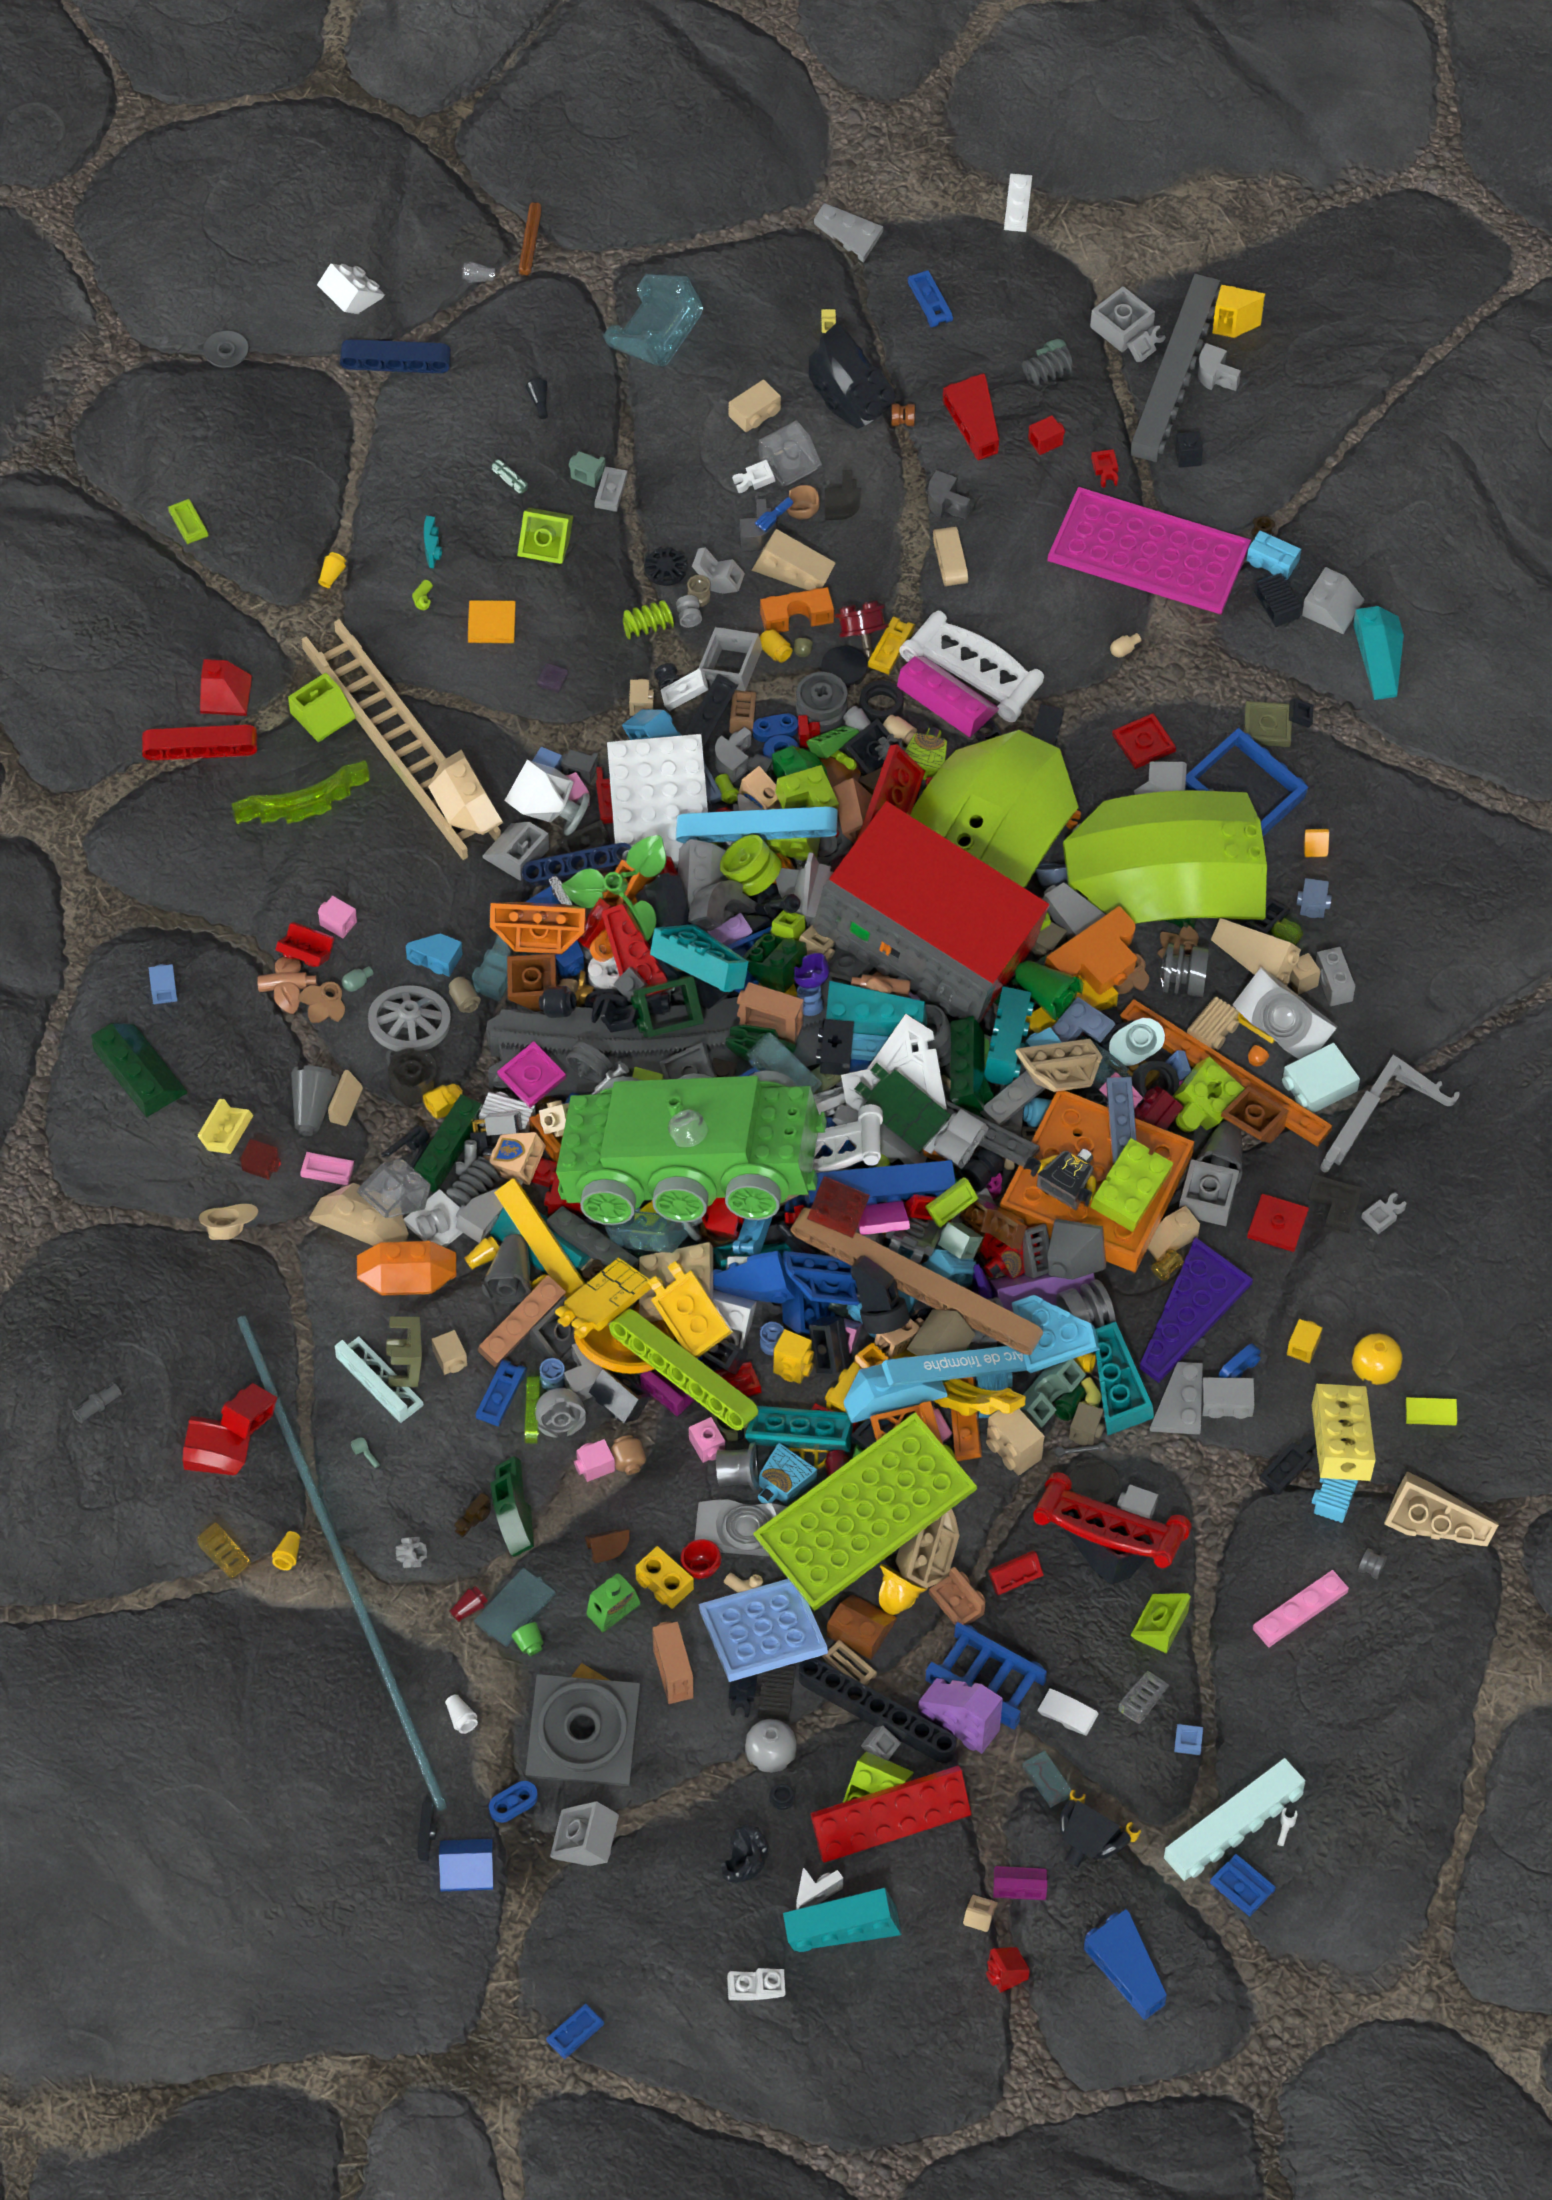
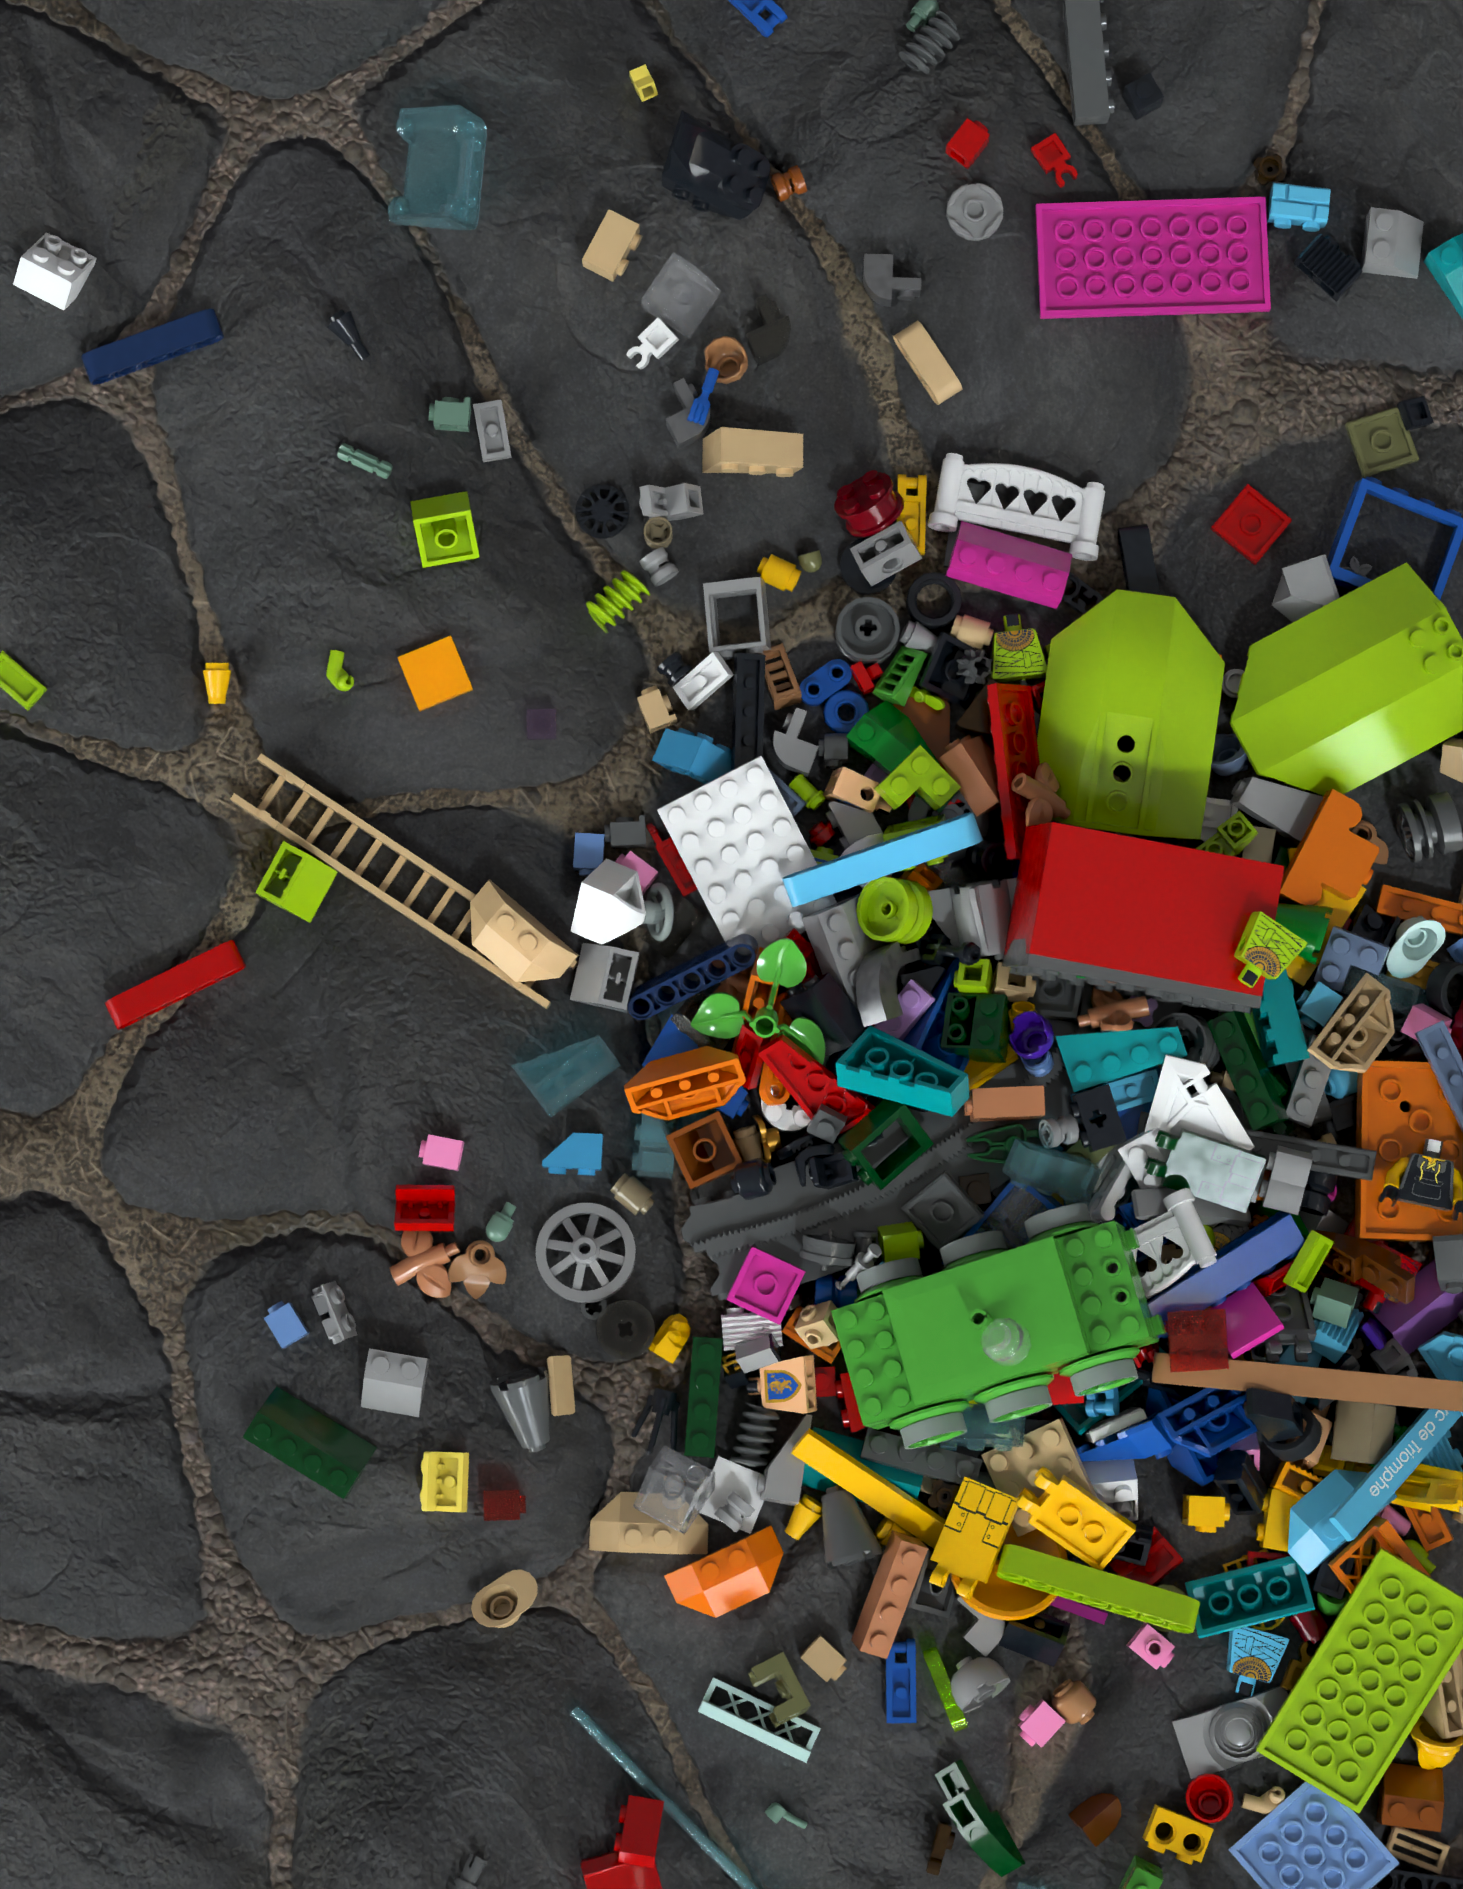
camera: 25 degrees left, 25 degrees up
(203, 982) = (341, 1323): none -> light grey hinge
(223, 1049) = (394, 1382): none -> light grey slope
(224, 688) = (170, 899): red slope -> none
(304, 802) = (330, 1028): clear neon green piece -> none
(327, 1168) = (580, 1479): bright pink tile -> none
(431, 541) = (322, 605): teal slope -> none
(455, 897) = (567, 1073): none -> clear light blue wedge
(470, 1156) = (734, 1401): light grey arm -> none
(477, 273) = (192, 184): clear cone -> none
(530, 238) = (234, 105): dark orange axle -> none
(552, 1374) = (948, 1637): medium blue wheel -> none
(737, 1467) = (1201, 1671): flat silver piece -> none
(770, 1332) = (1171, 1491): medium blue wheel -> none
(802, 1044) = (1058, 1131): none -> light grey wheel
(813, 604) = (801, 497): orange arch -> none
(865, 643) = (886, 553): none -> light grey brick
(973, 414) = (870, 148): red slope -> none
(1009, 947) = (1266, 949): none -> lime torso
(1030, 1267) = (1420, 1265): dark grey slope -> none
(1031, 480) = (974, 211): none -> light grey tile
(1124, 645) = (1177, 402): tan cylinder -> none
(1187, 937) = (1398, 785): medium nougat plate -> none

